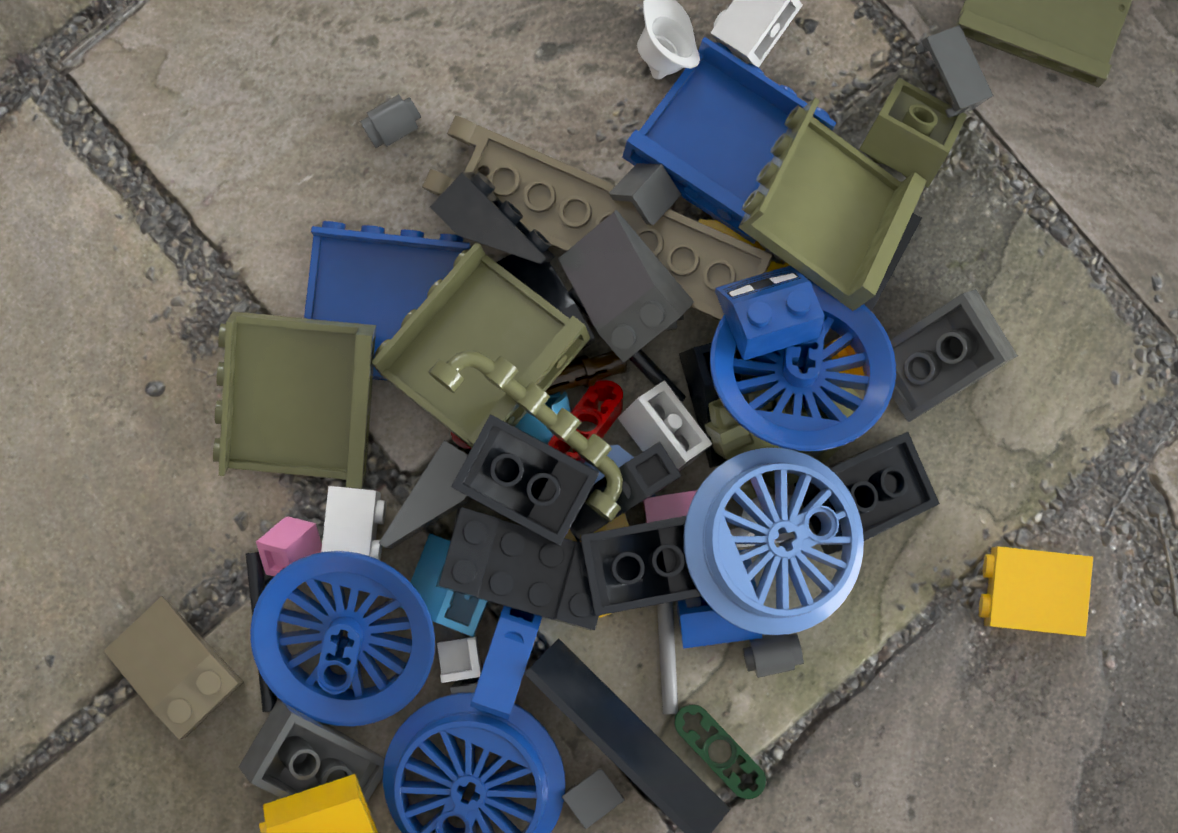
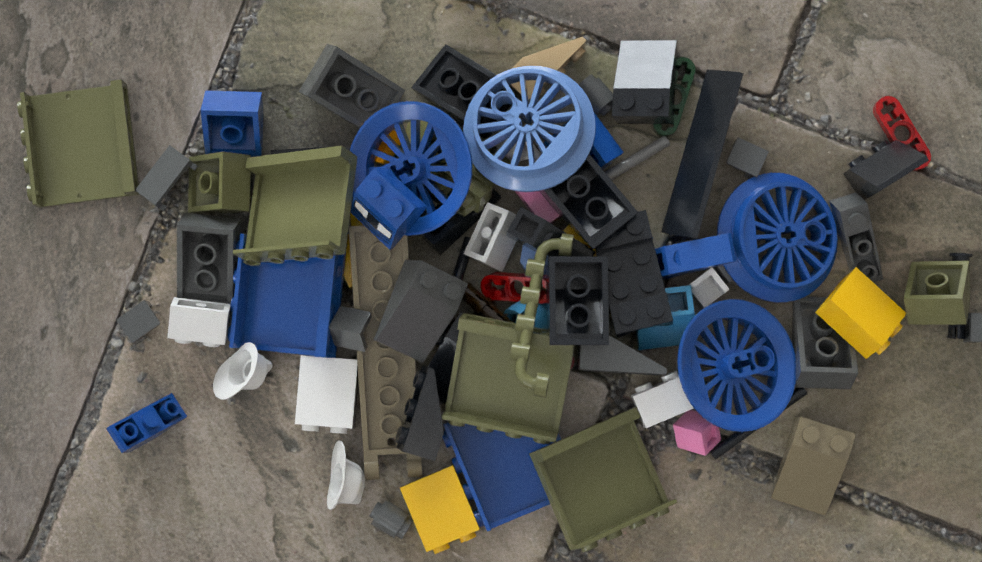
camera: 115 degrees left, 0 degrees up
(370, 185) = (440, 509): none -> yellow brick
(467, 93) = (346, 479): none -> white piece
(583, 124) = (327, 393): none -> white brick
(757, 724) = (645, 82): none -> slope
(834, 67) = (207, 257): none -> dark grey slope
(846, 622) = (554, 58): none -> tan slope
(979, 188) = (232, 122): none -> blue slope

